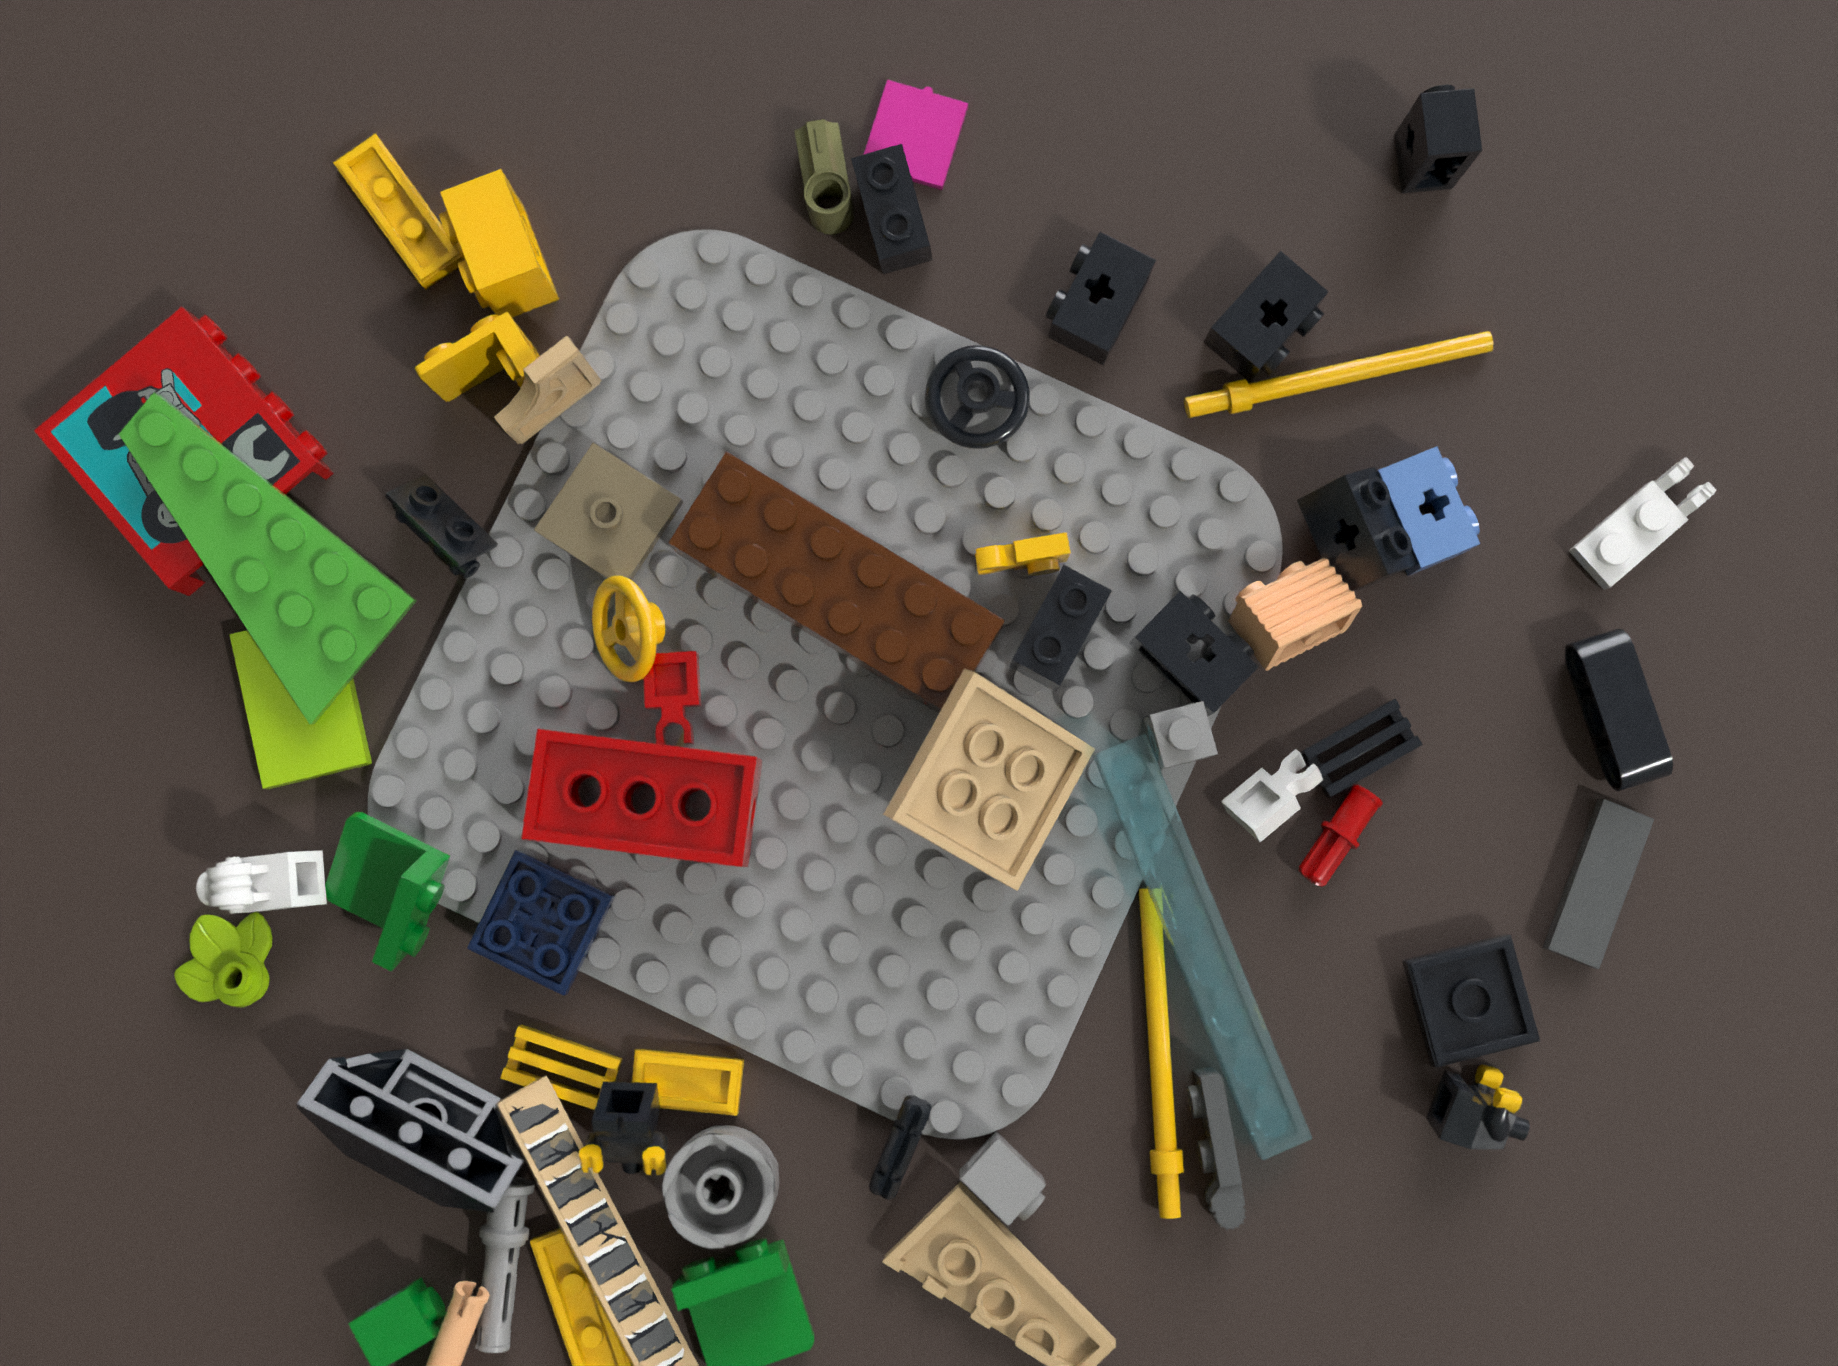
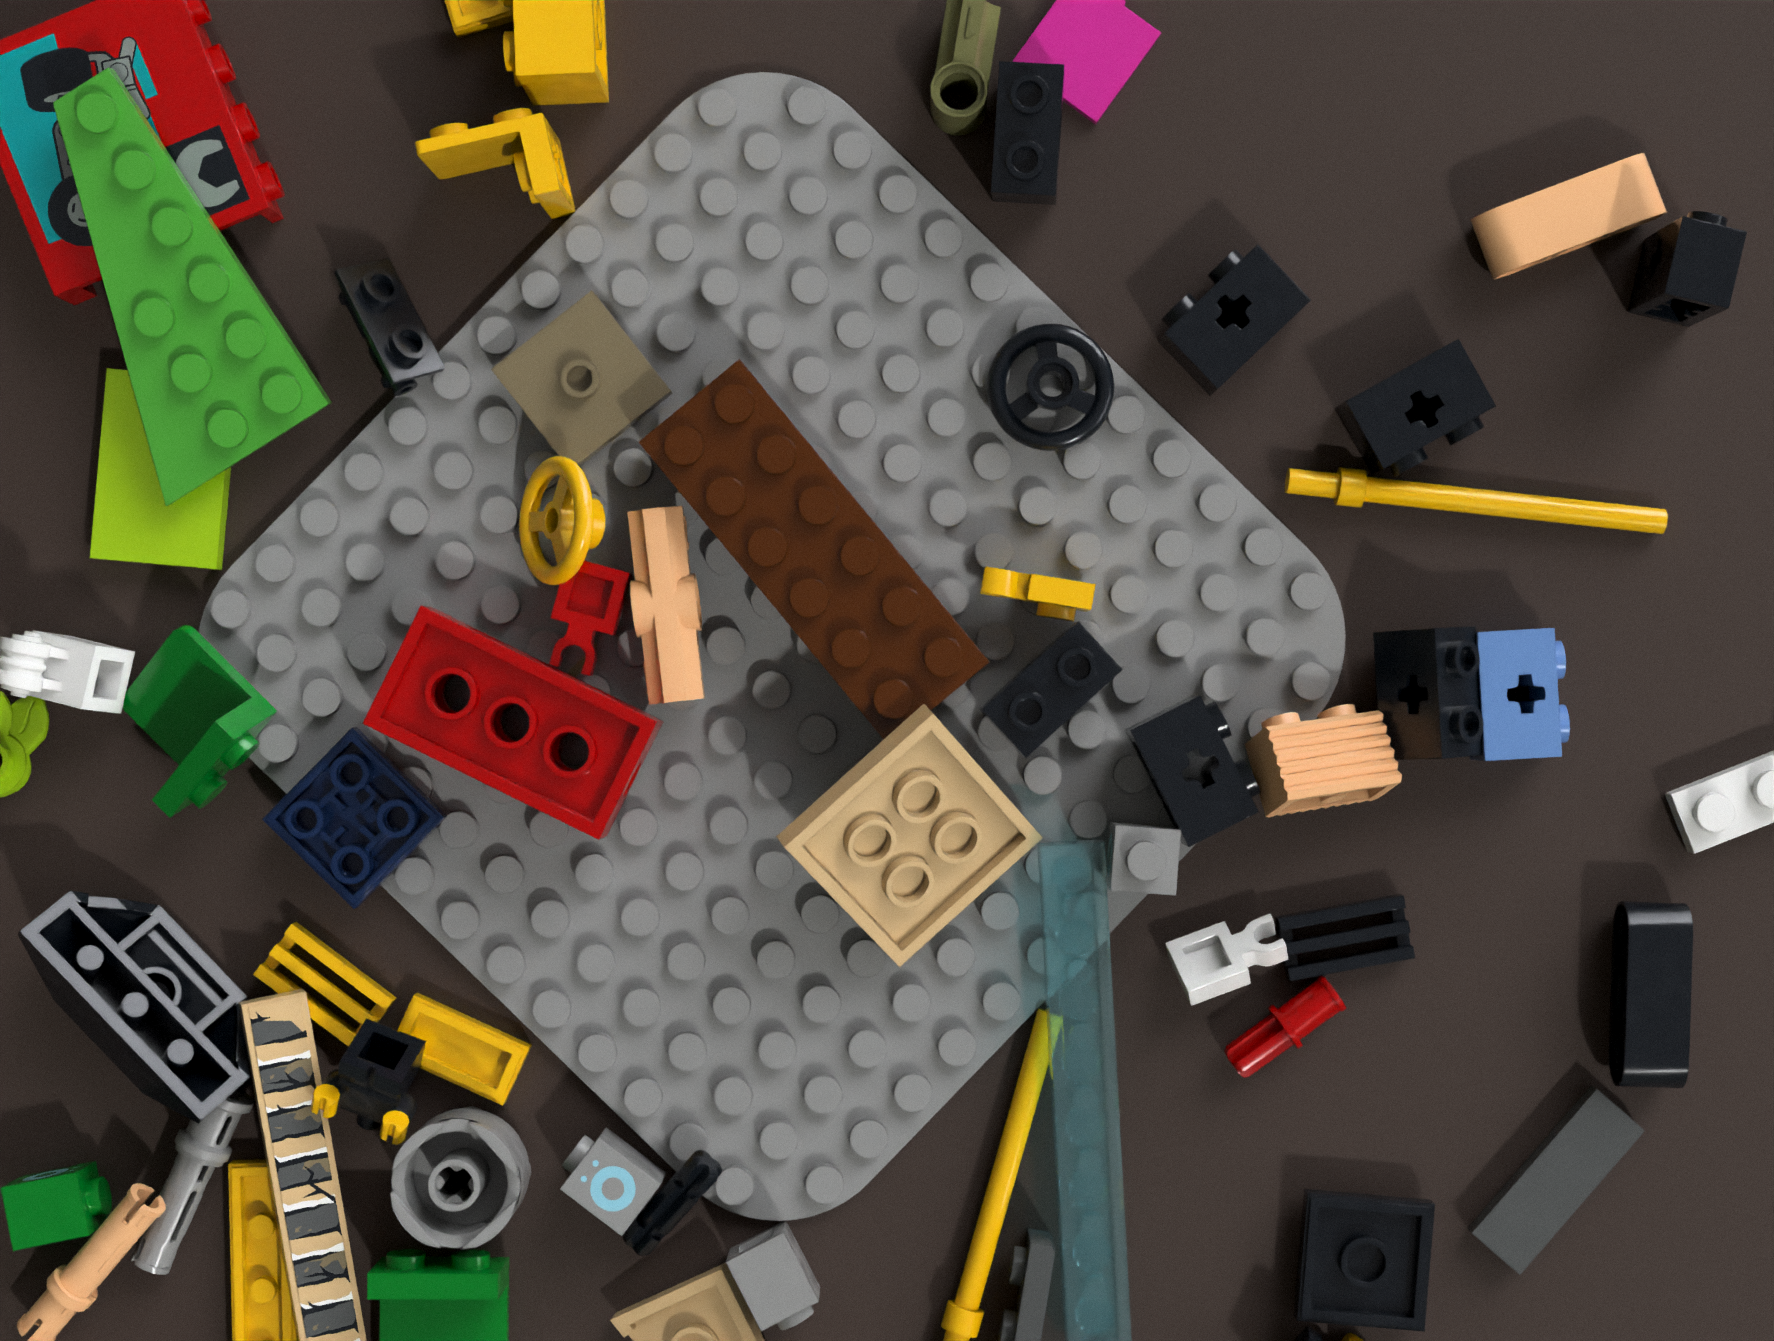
camera: 15 degrees right, 5 degrees up
(549, 389) = (559, 215): tan tile -> none
(733, 666) = (666, 604): none -> light nougat piece
(843, 1145) = (611, 1179): none -> light grey brick
(1330, 134) = (1568, 216): none -> light nougat beam

